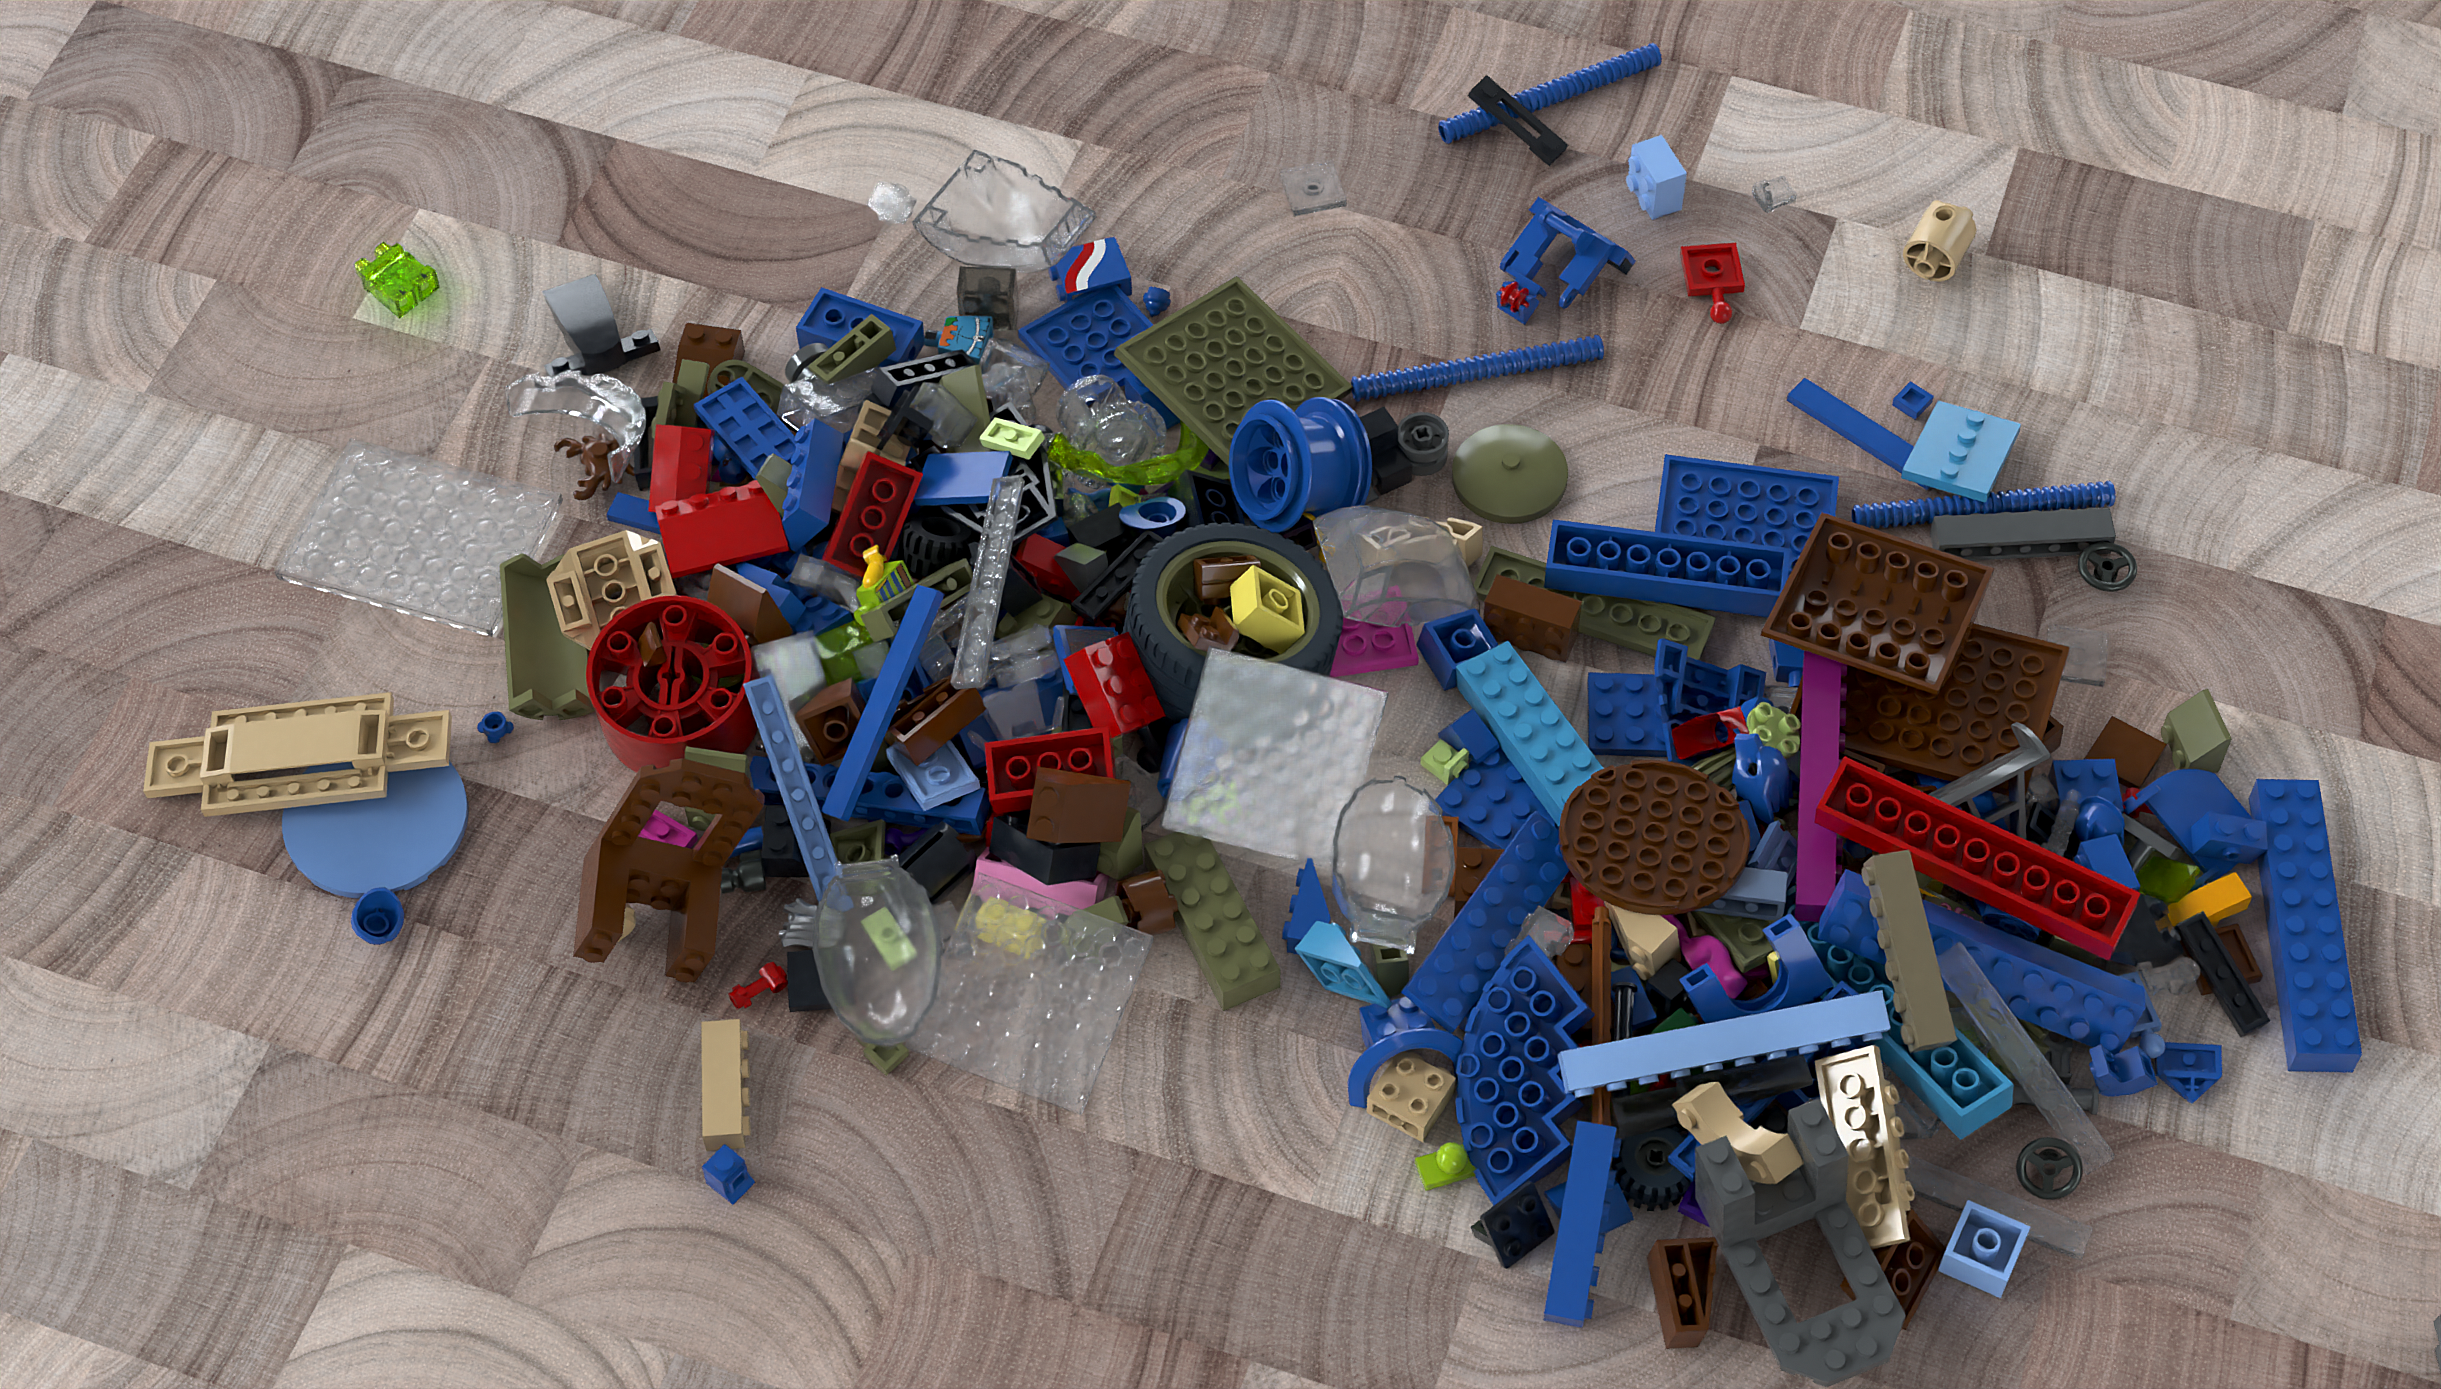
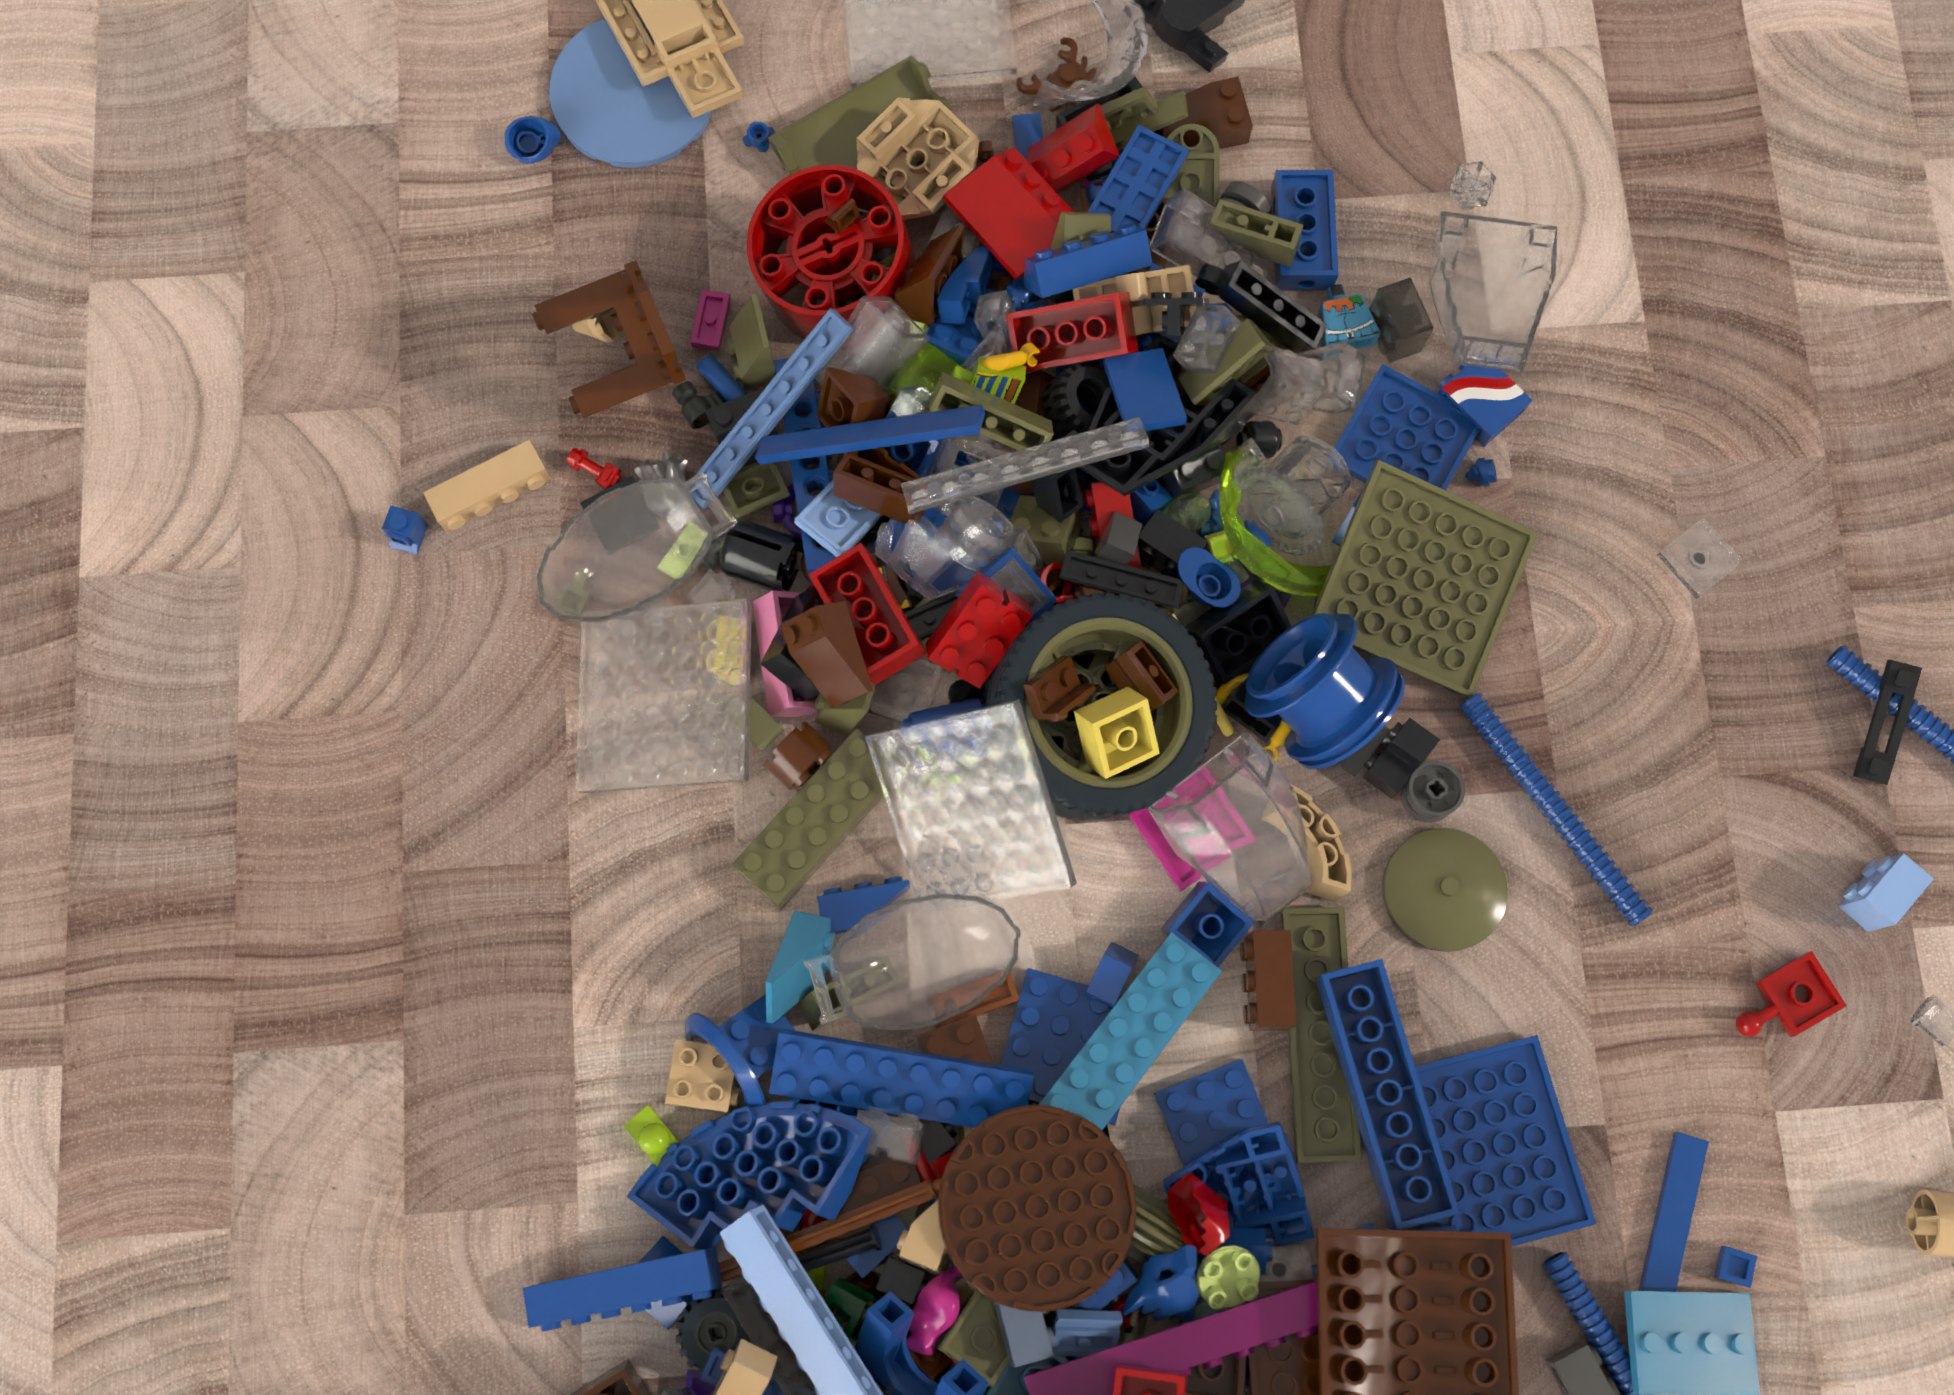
camera: 65 degrees right, 20 degrees up
(1012, 437) = (1203, 413): yellowish green plate -> none
(1445, 761) = (1081, 962): yellowish green bracket -> none
(1515, 1225) = (610, 1222): black bracket -> none
(1523, 260) = (1747, 863): blue container -> none

